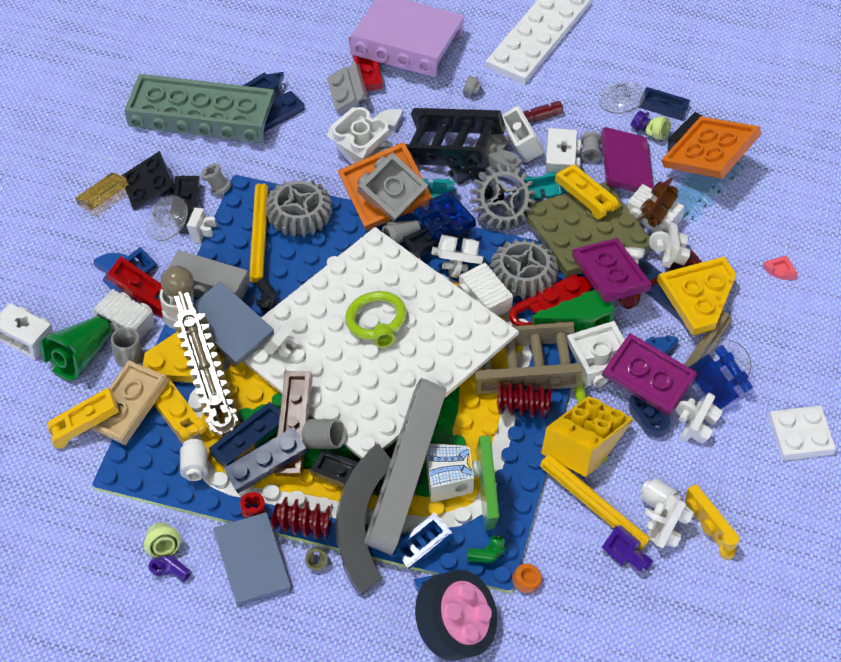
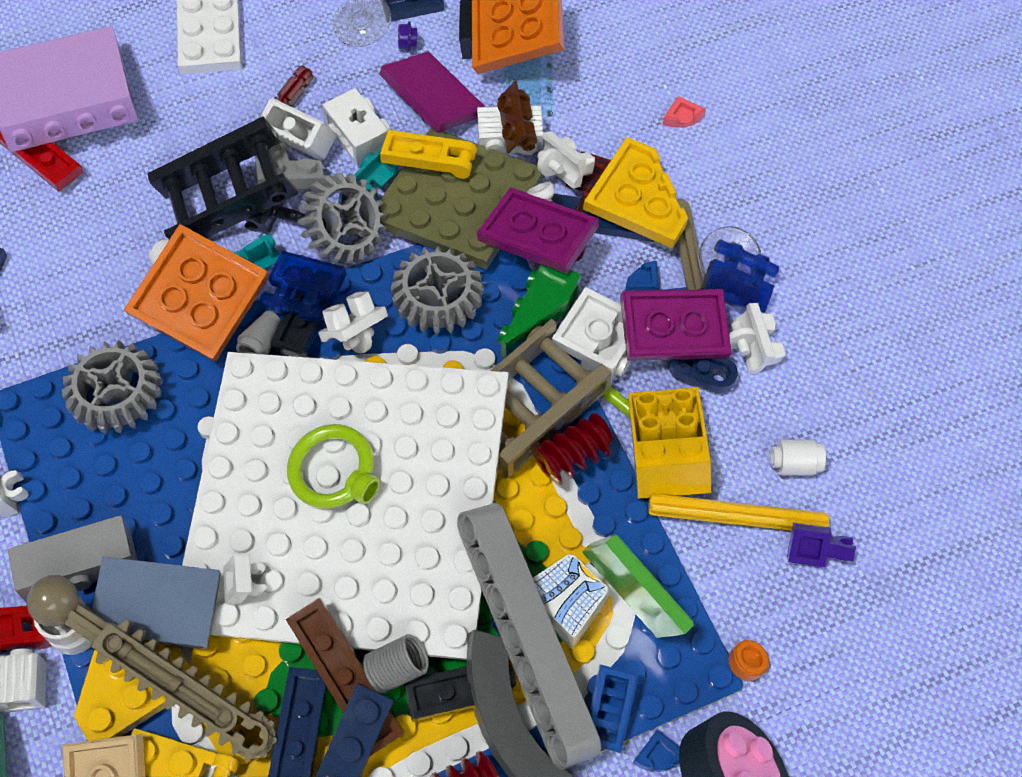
camera: 40 degrees left, 10 degrees up
(126, 346) = (27, 715): light grey piece -> none
(258, 233) = (88, 453): yellow axle -> none
(268, 295) = (168, 525): black arm -> none
(347, 88) = (42, 197): light grey plate -> none
(359, 135) = (113, 248): white piece -> none
(391, 186) = (213, 290): light grey plate -> none
(392, 118) = (122, 205): white tile -> none
(471, 86) = (187, 106): light grey plate -> none
(486, 289) = (418, 343): white brick -> none
(489, 553) = (691, 663): green arm -> none
(560, 291) = (499, 297): red plate -> none
(591, 144) = (381, 98): light grey bush -> none
(660, 128) = (435, 30): yellowish green tile -> none
(664, 519) = (835, 482): white hips -> none
(712, 522) = (871, 448): yellow plate -> none
(801, 433) = (858, 283): white plate -> none

